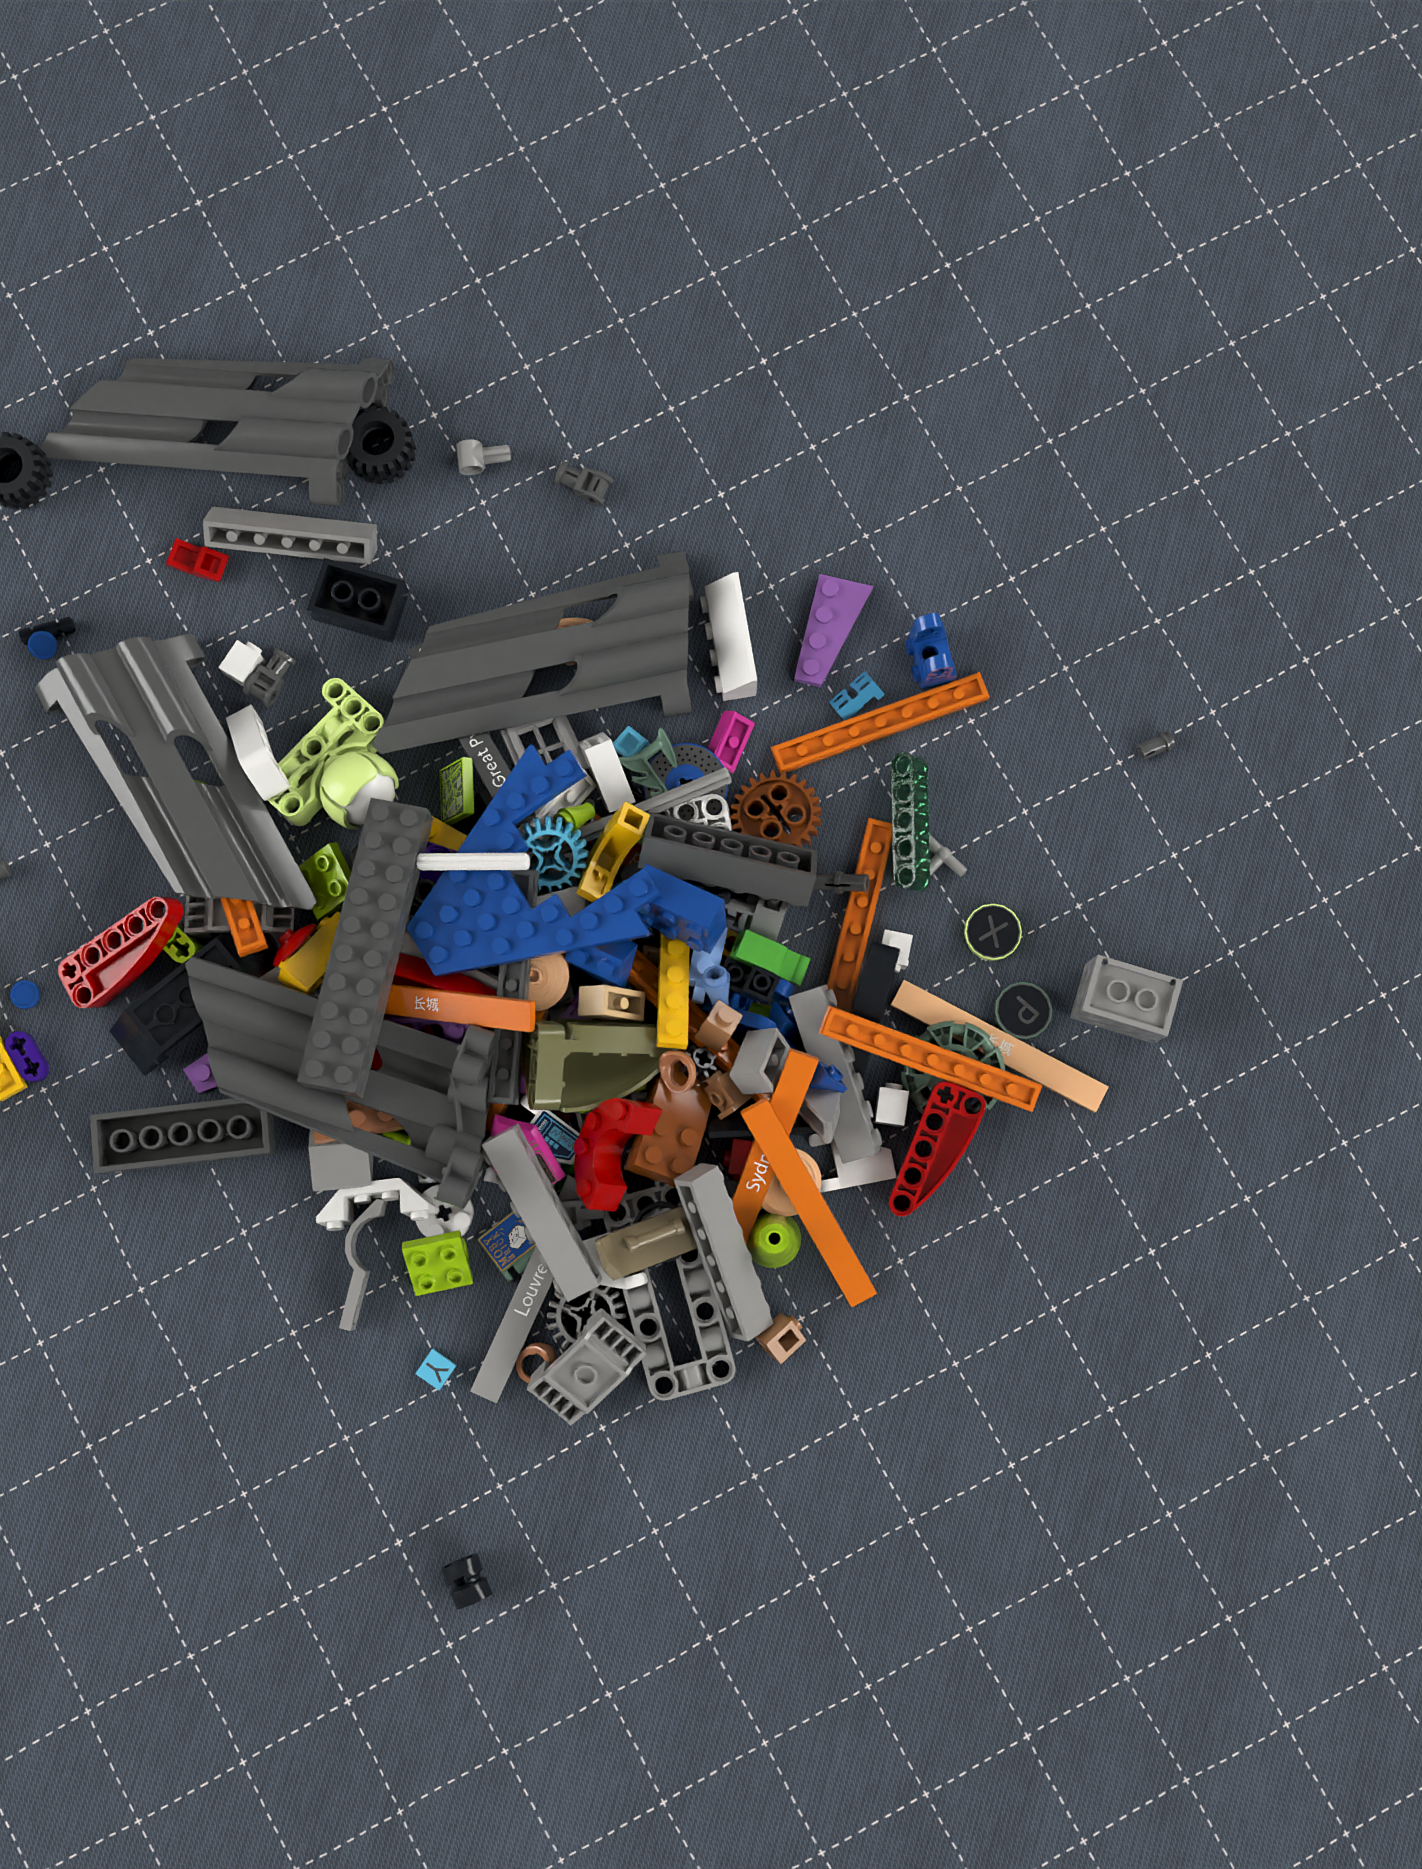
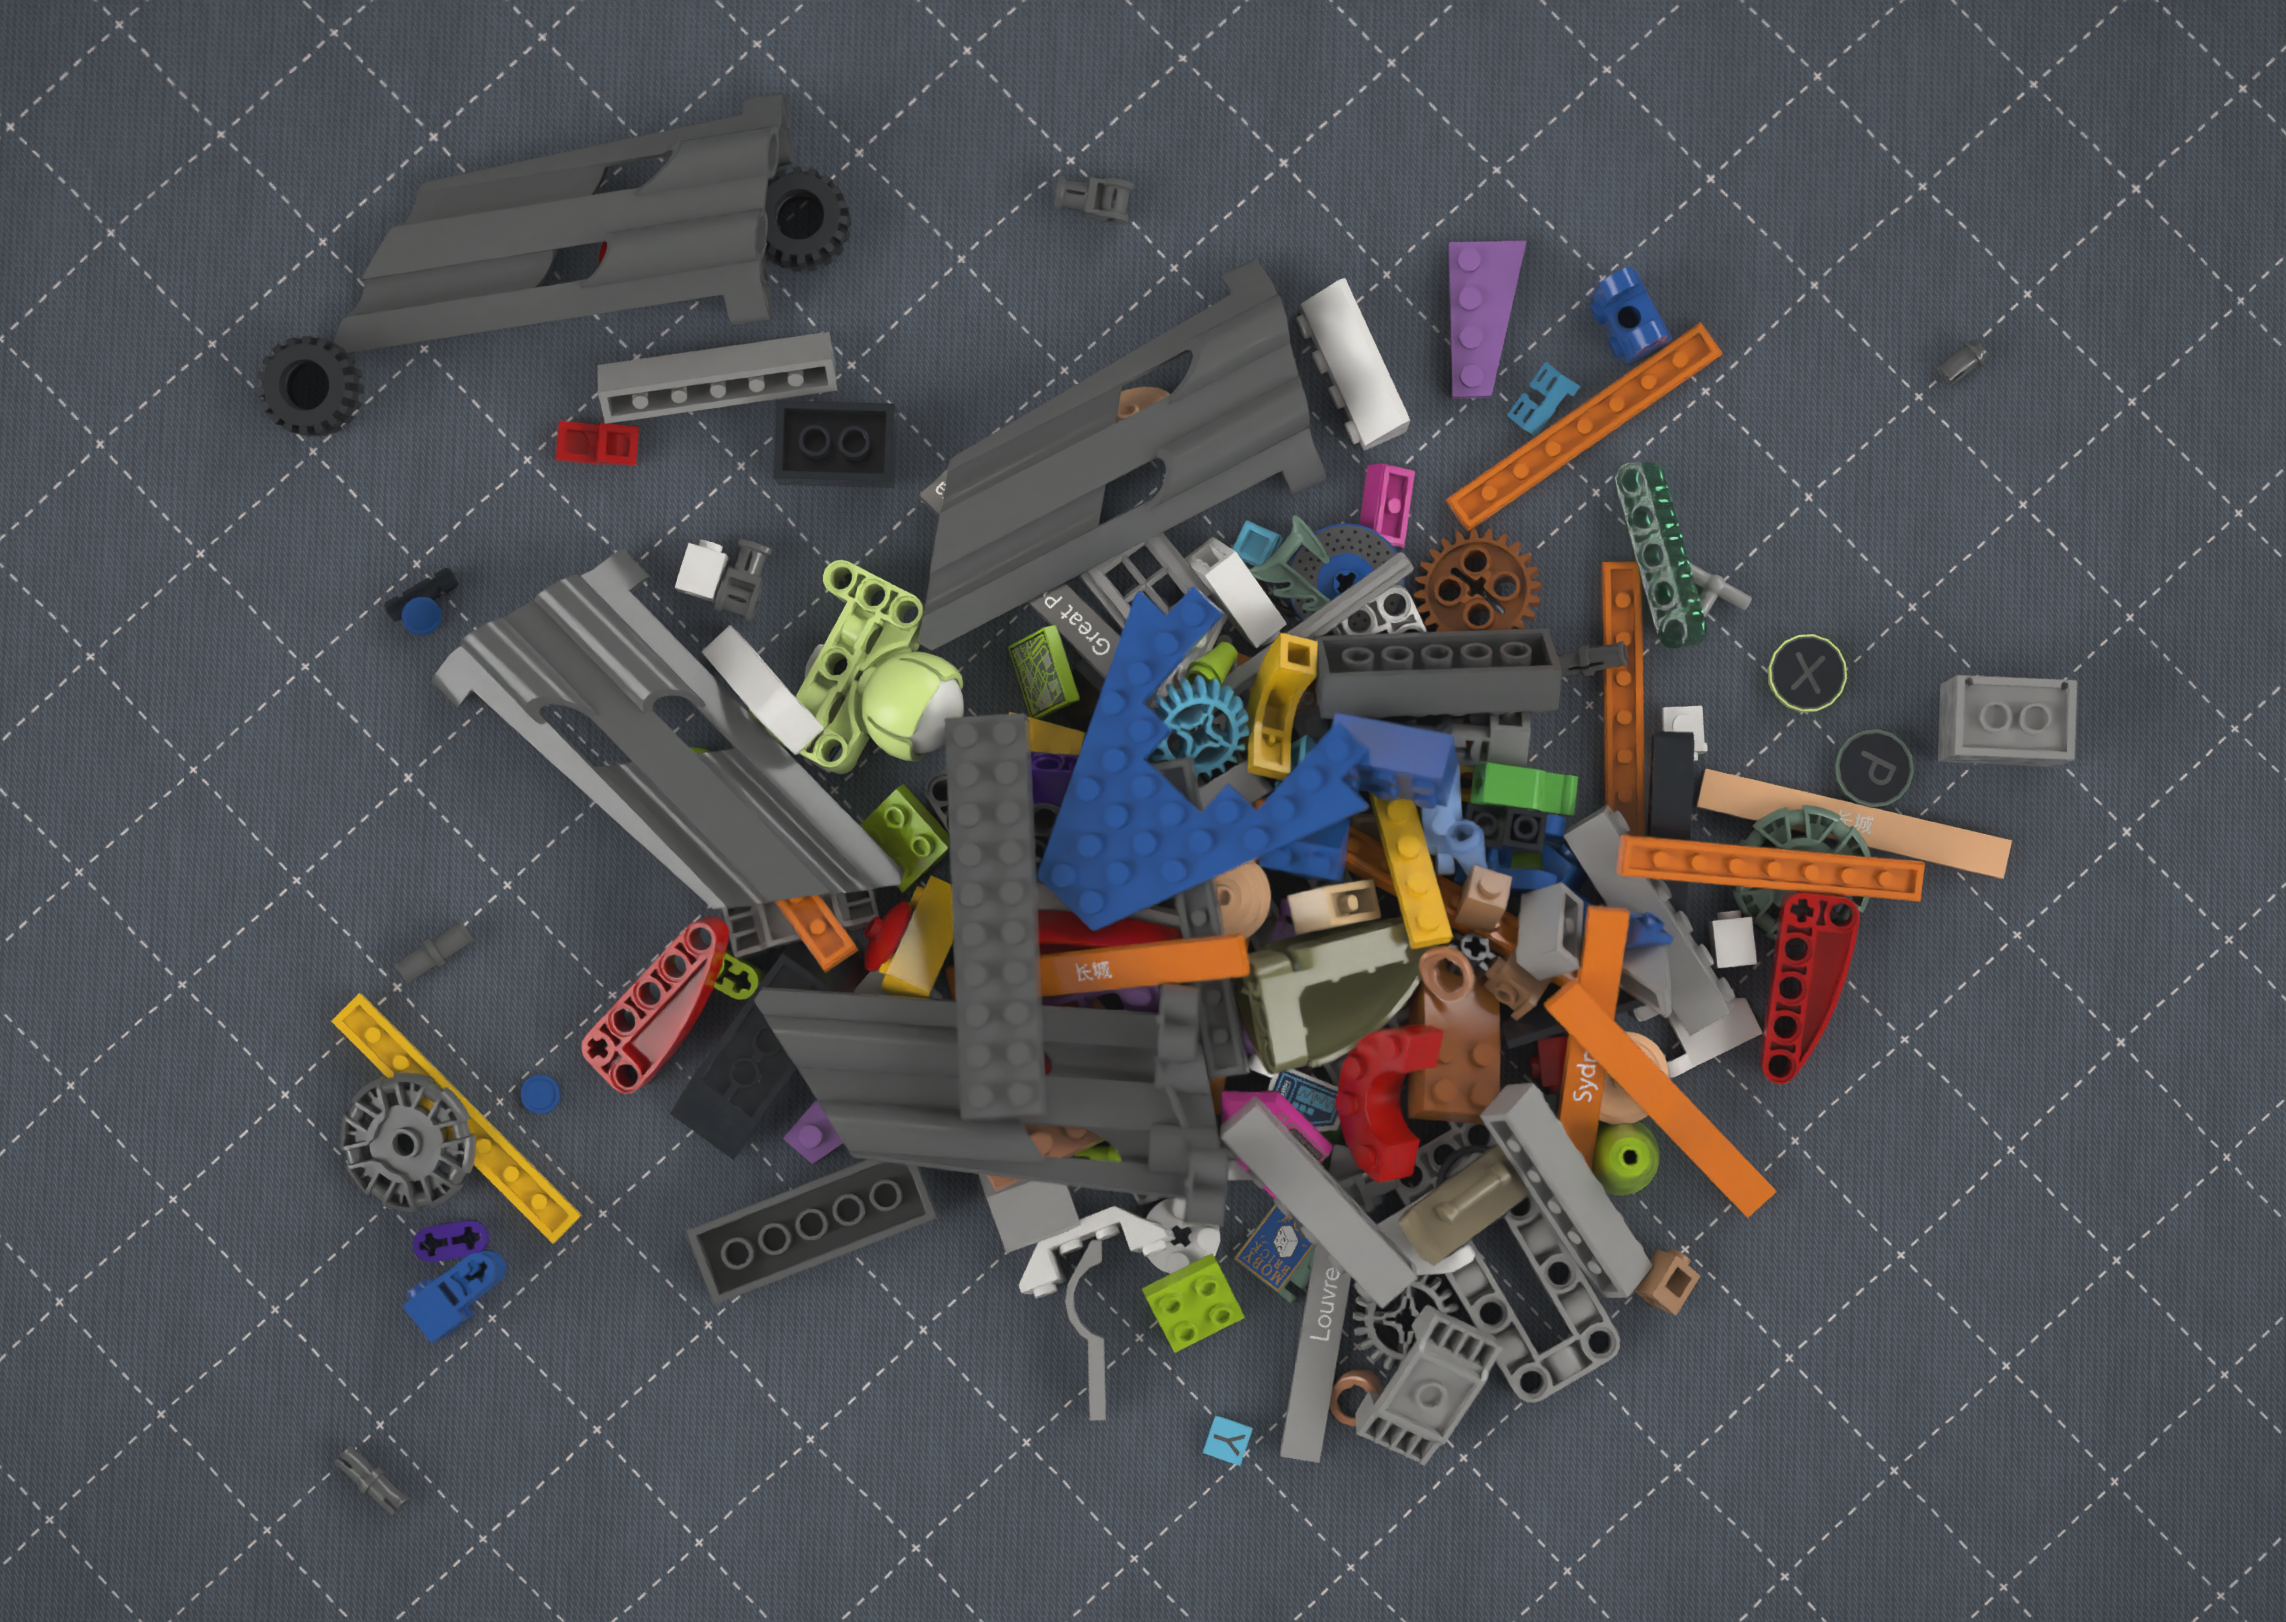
camera: 10 degrees left, 5 degrees up
(32, 1052) = (562, 1182): dark purple beam -> none
(473, 456) = (933, 200): light grey axle -> none
(473, 861) = (1106, 769): white axle -> none

